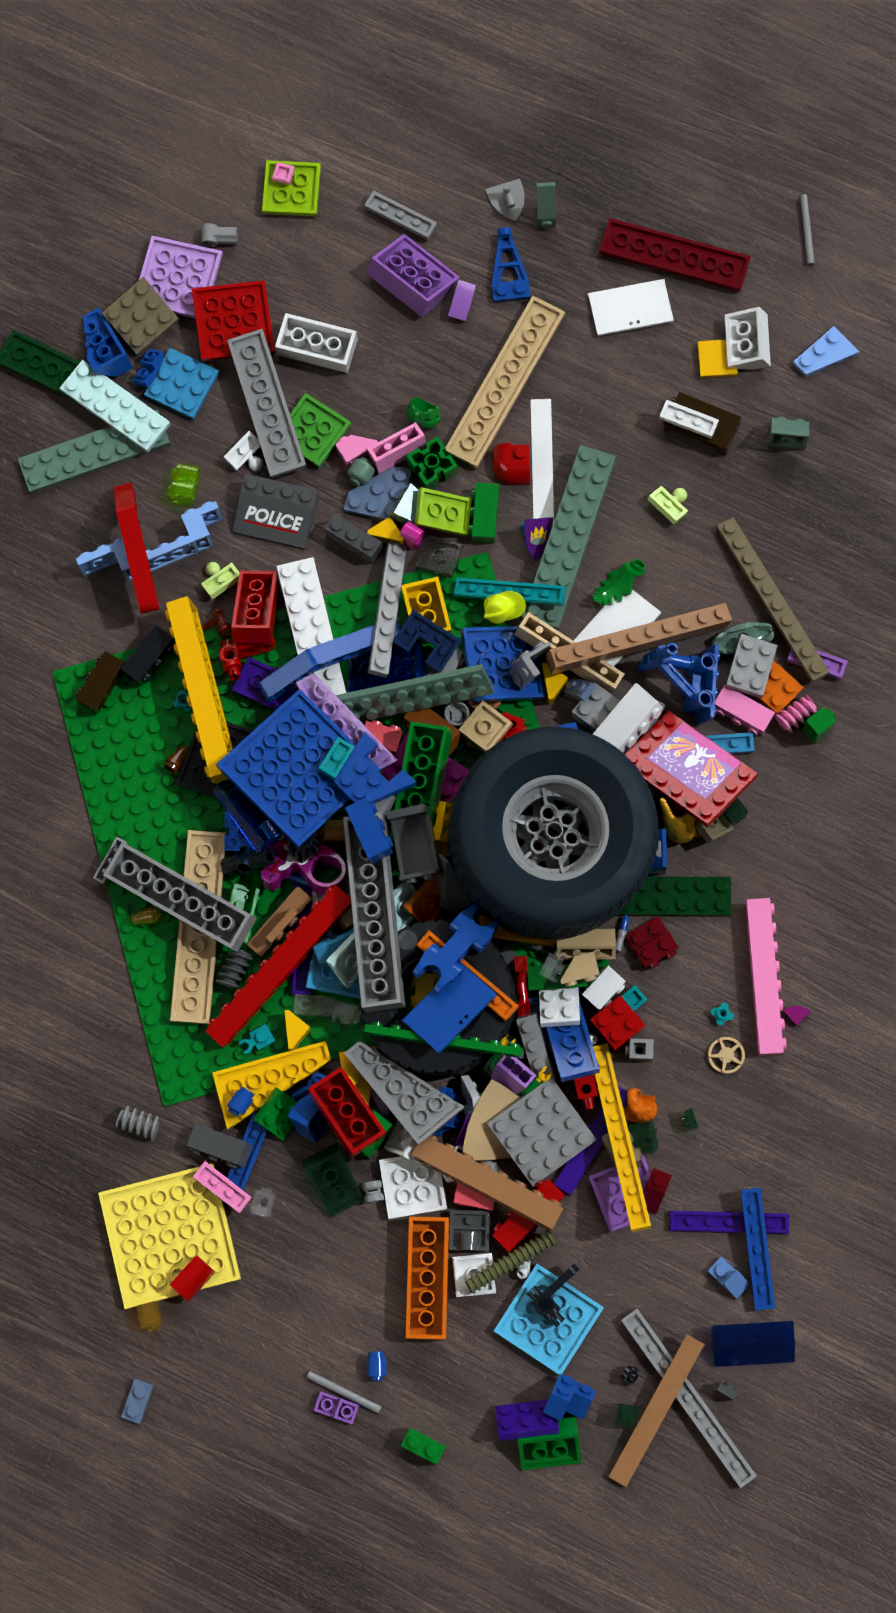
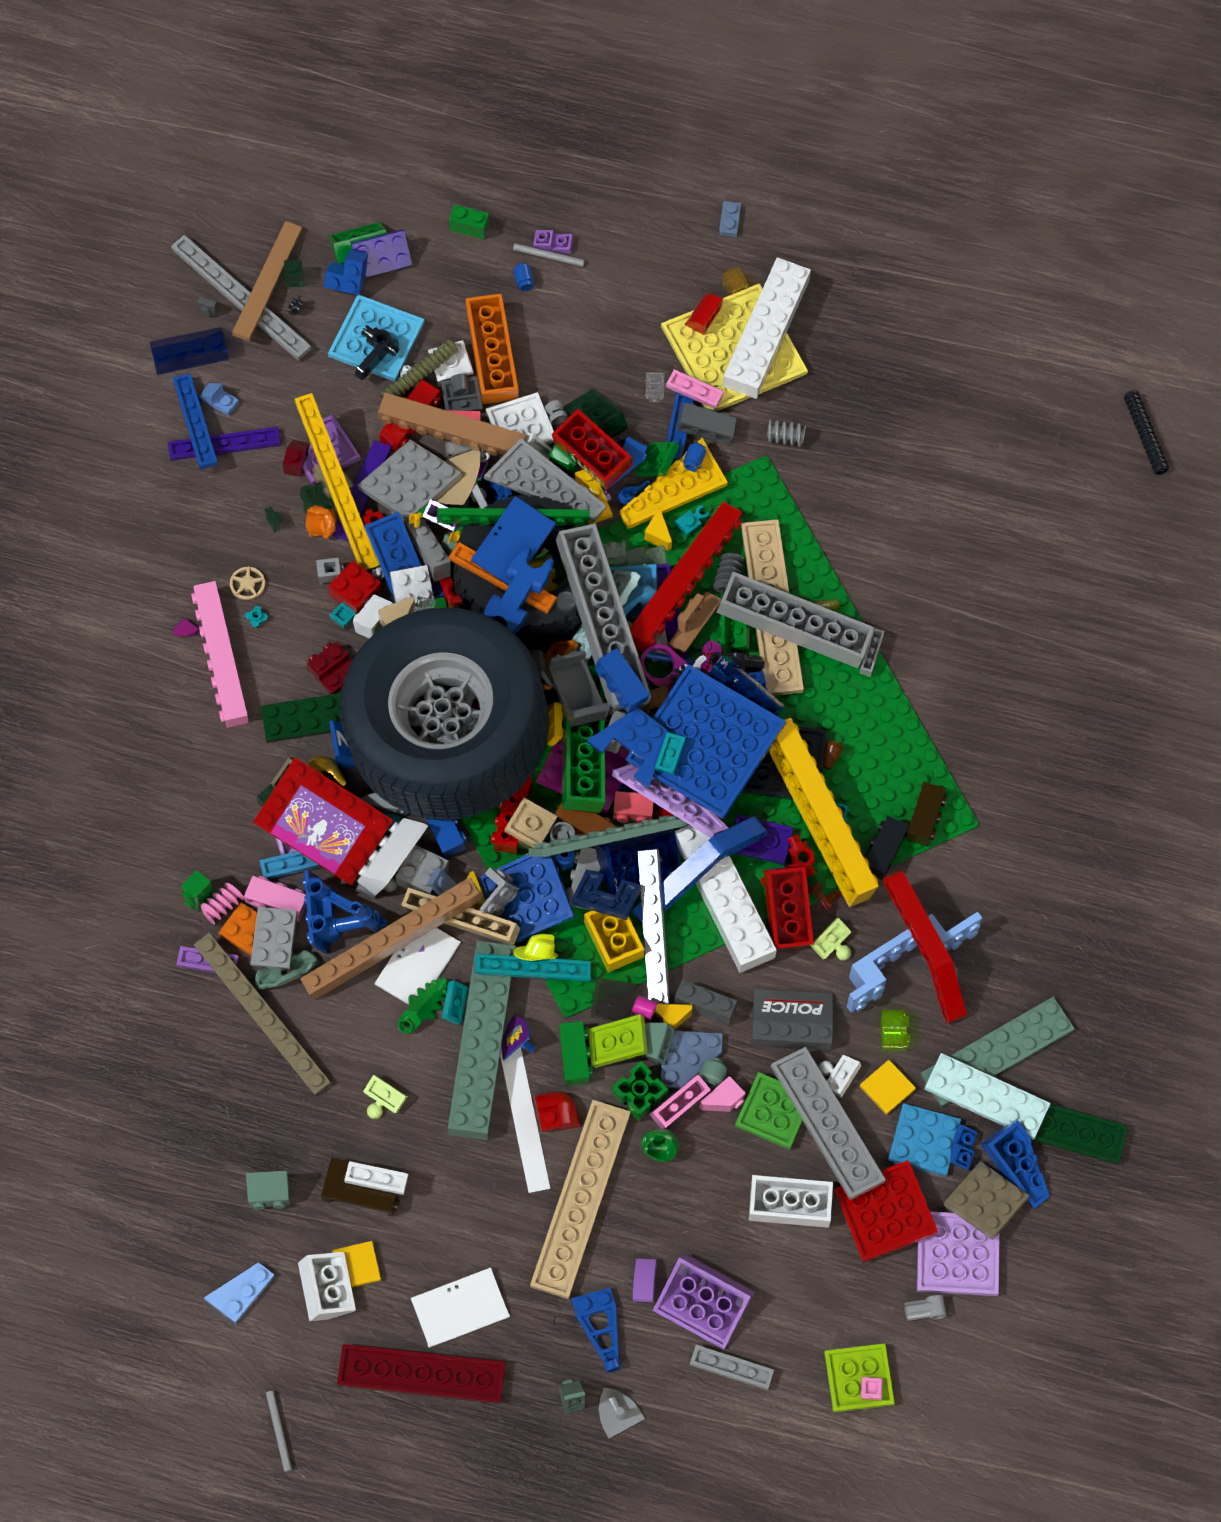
camera: 160 degrees right, 10 degrees down
(129, 1245) = (766, 328): none -> white brick
(203, 436) = (887, 1087): none -> yellow tile
(588, 579) = (454, 1002): none -> teal plate

